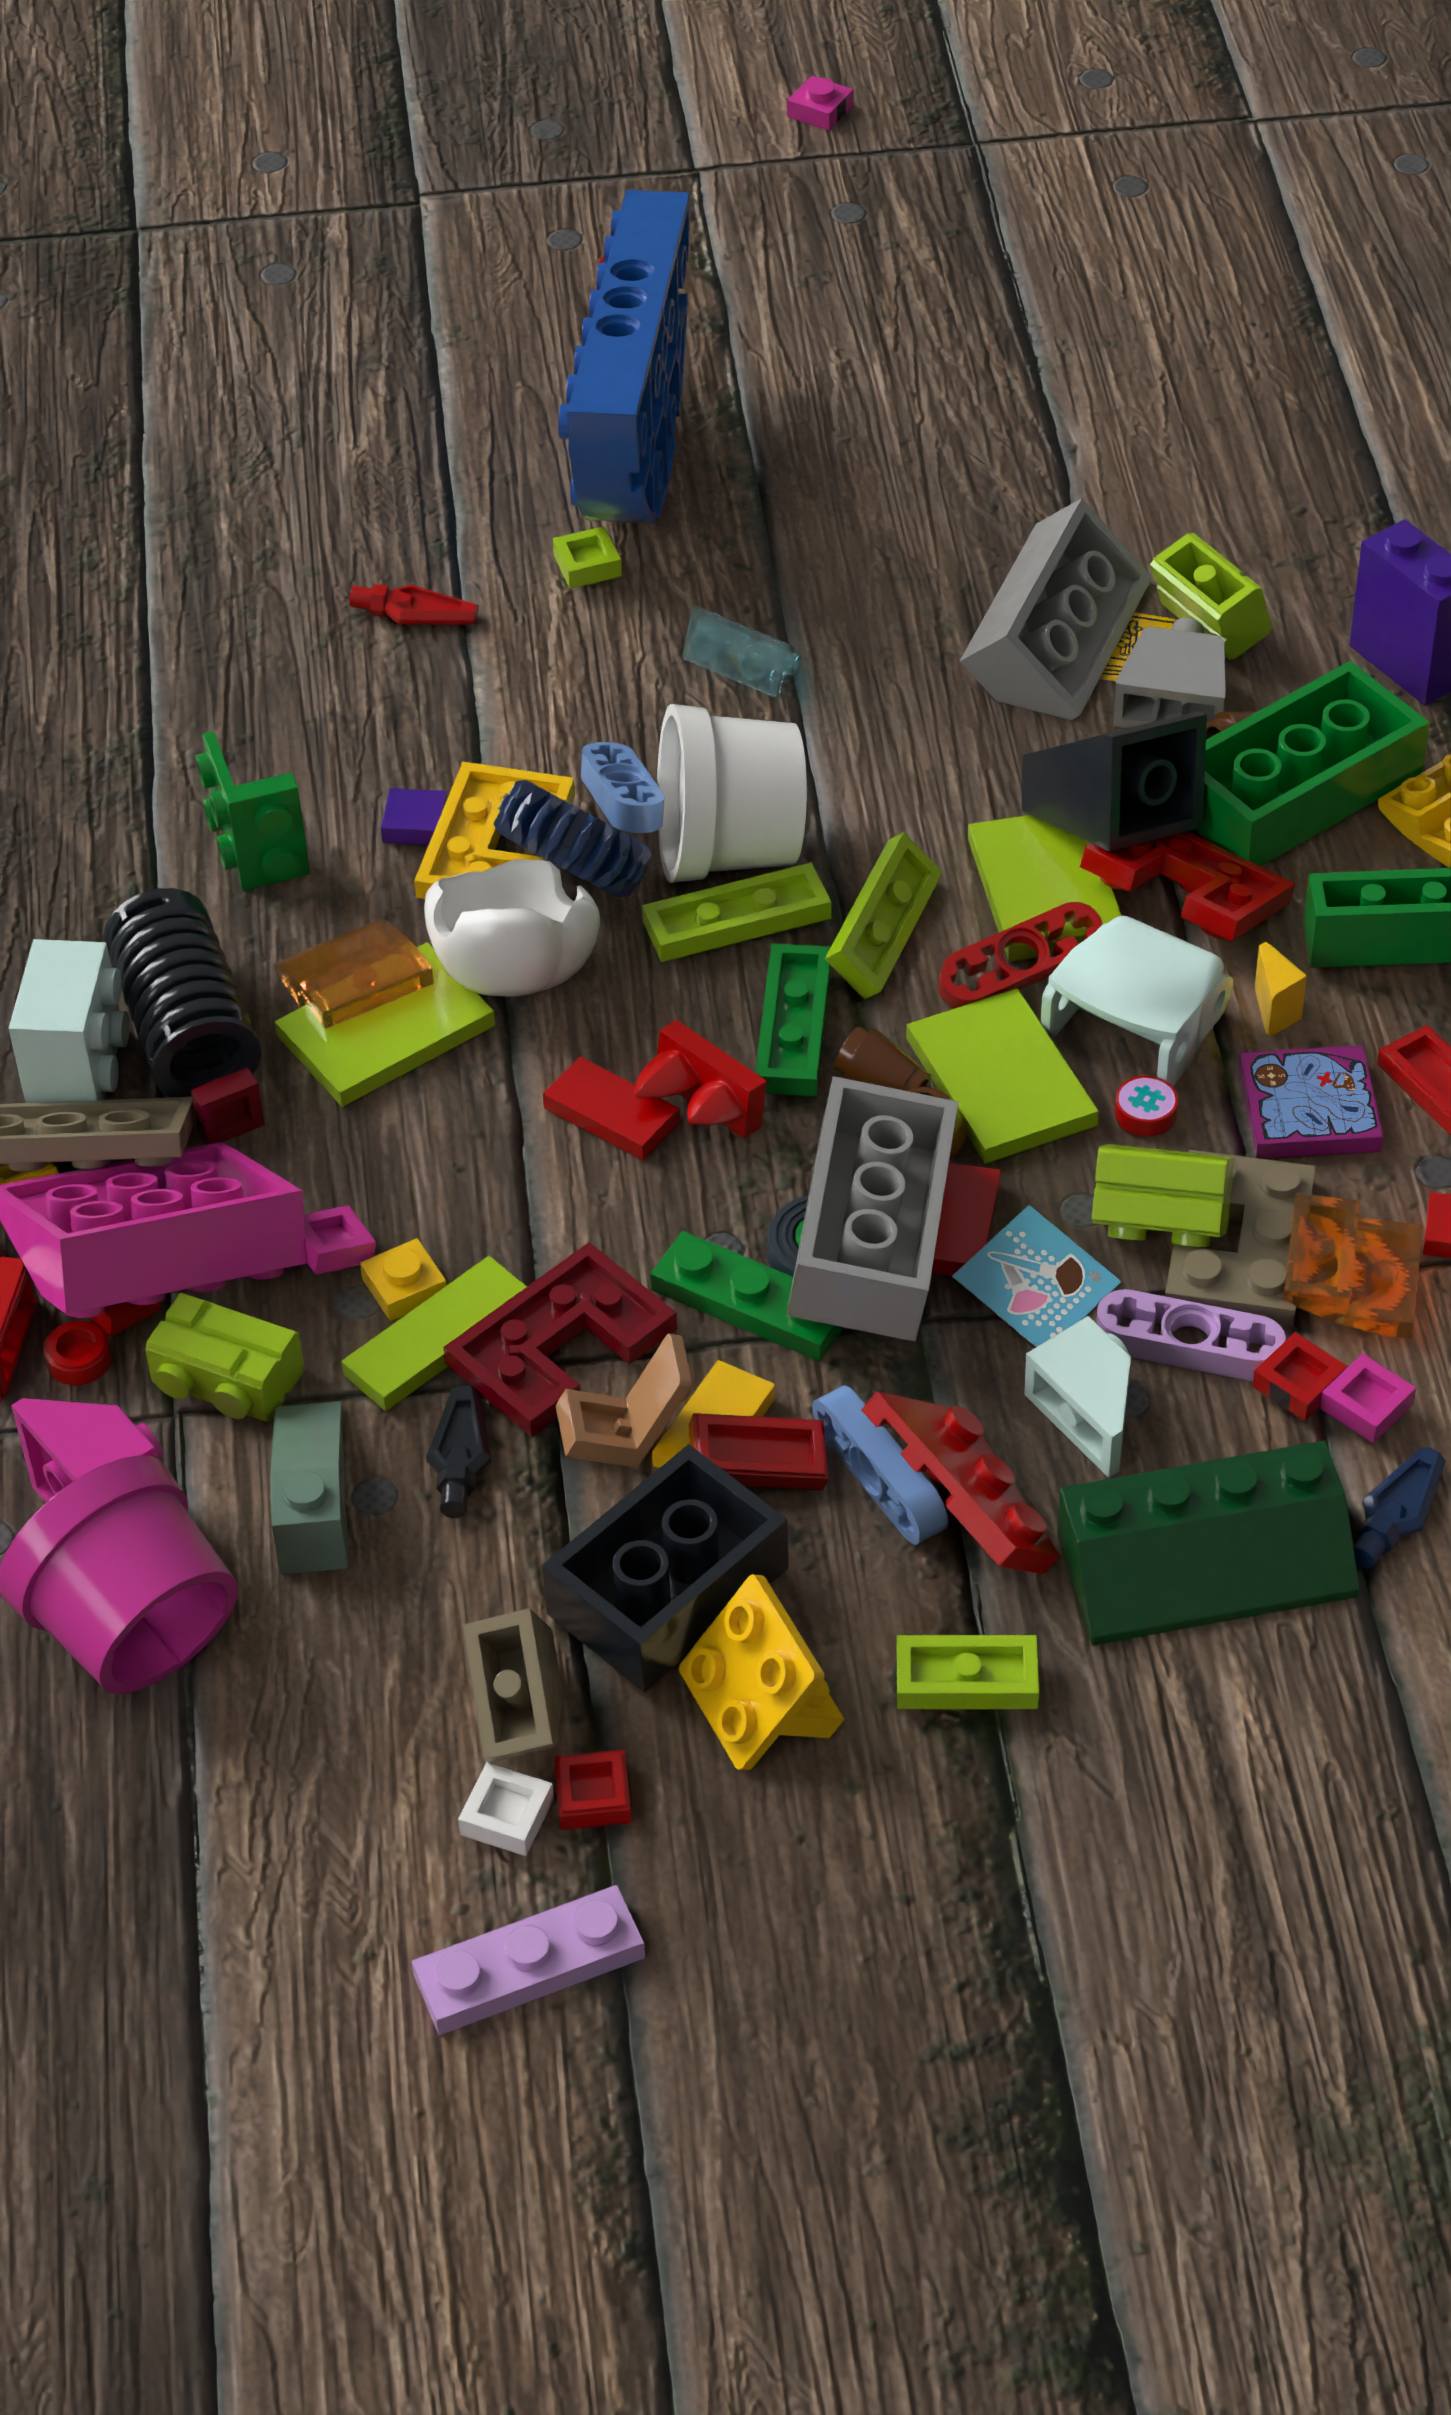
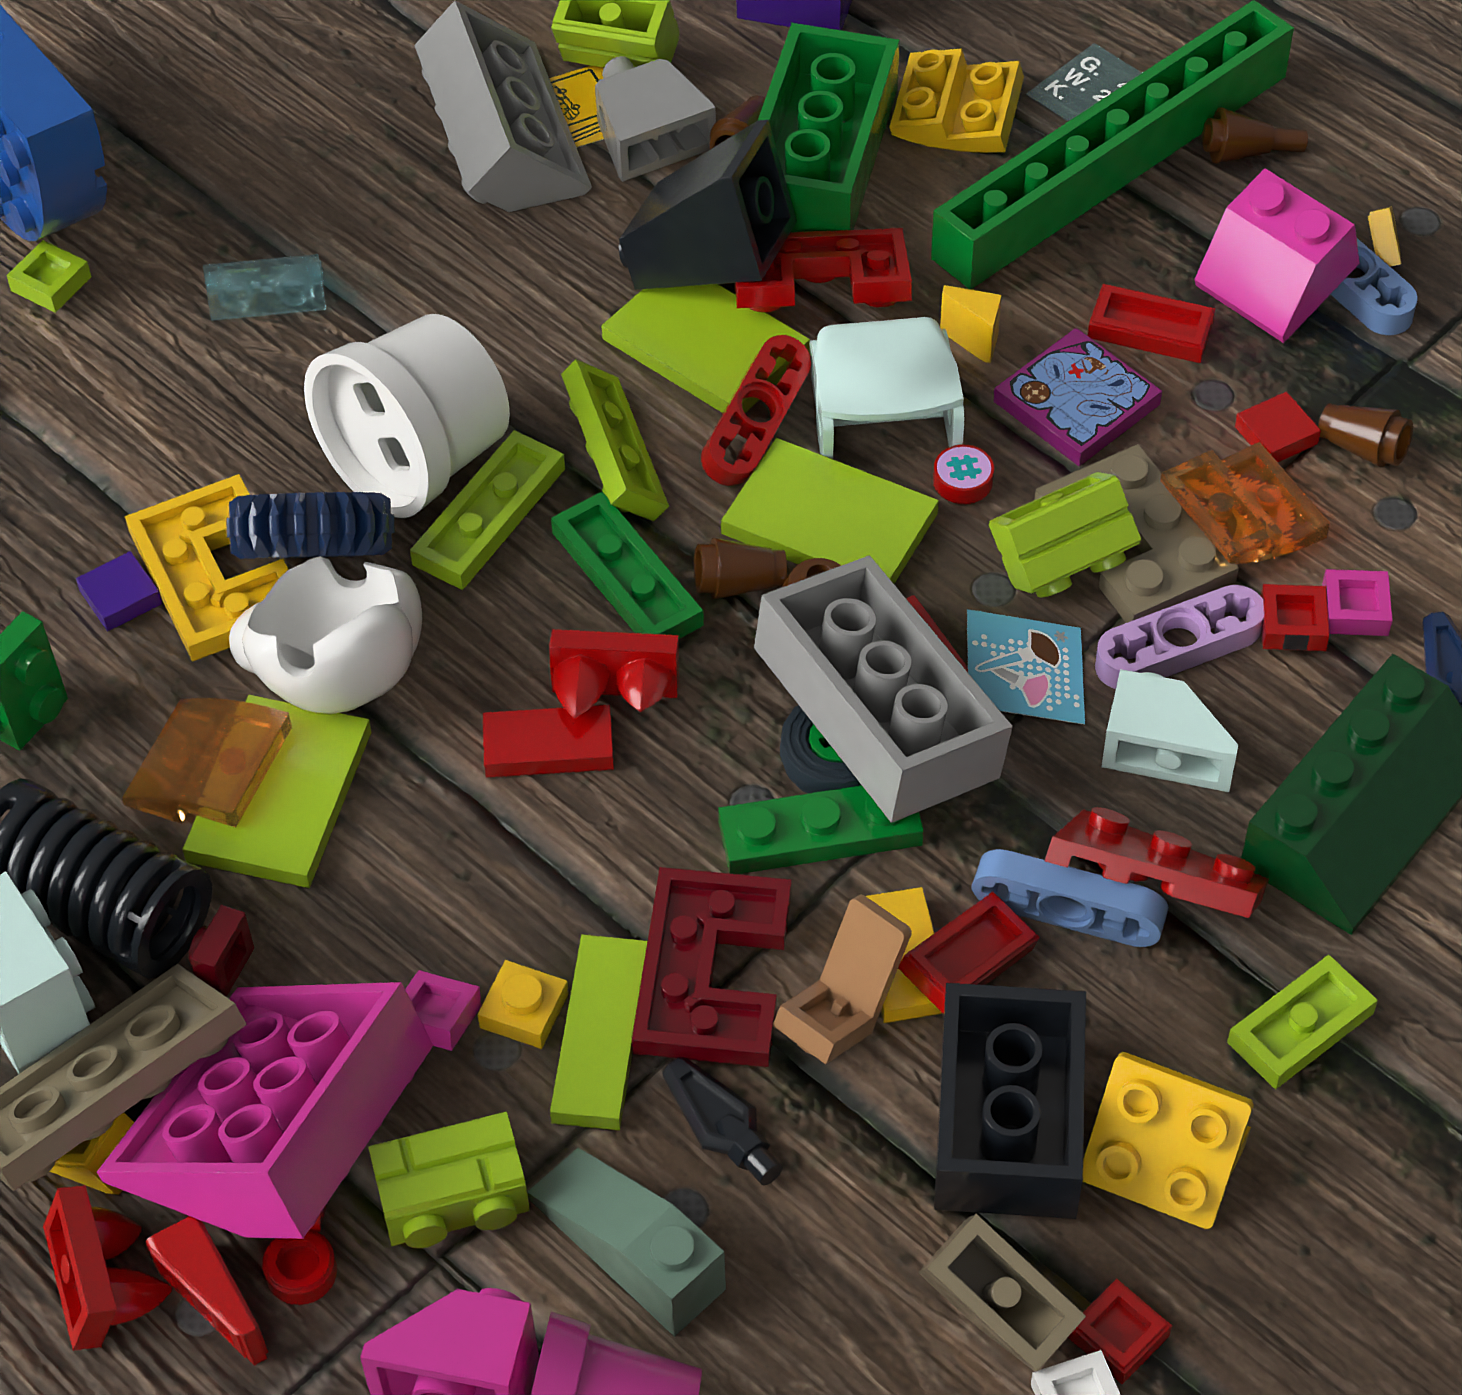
camera: 40 degrees left, 5 degrees up
(622, 787) = (292, 457): medium blue beam -> none

